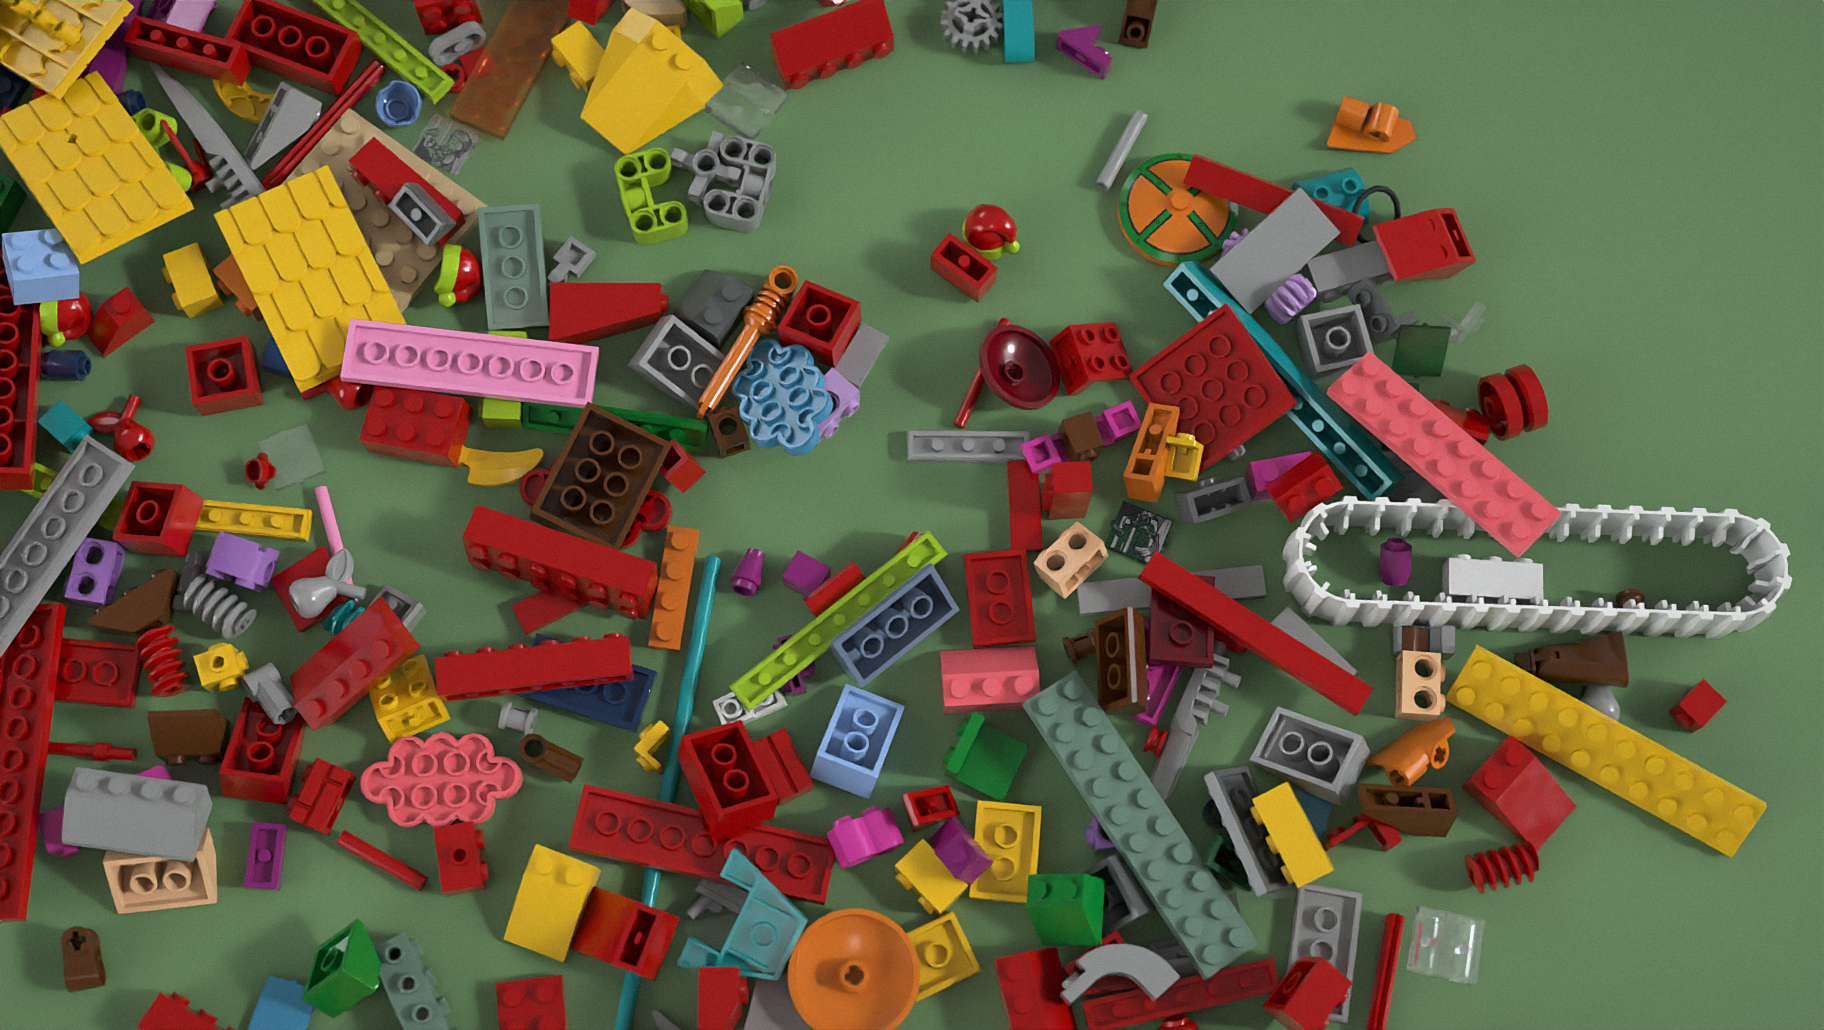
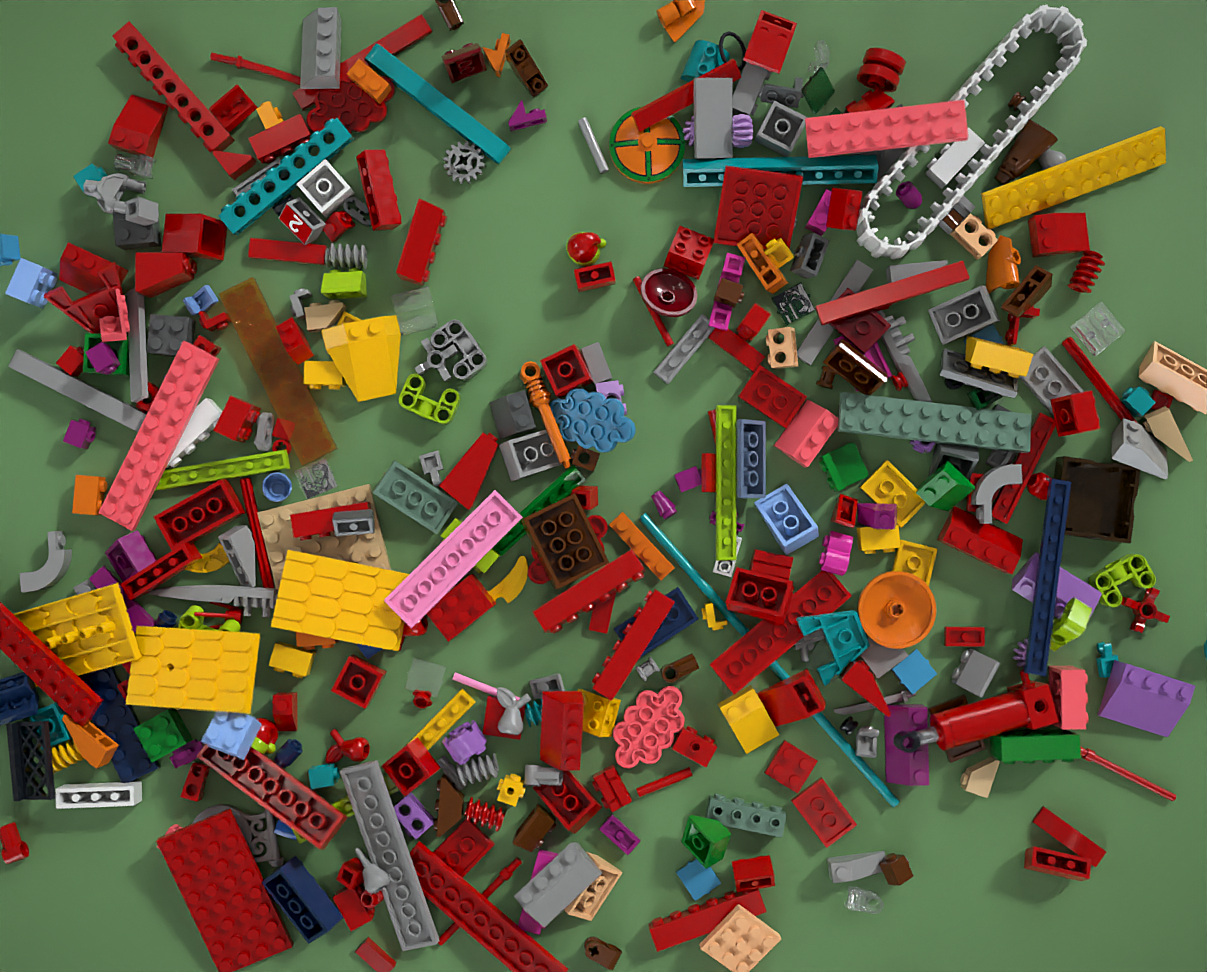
camera: 50 degrees left, 15 degrees up
(459, 276) = (397, 527): piece -> none
(1697, 706) = (1088, 115): red brick -> none

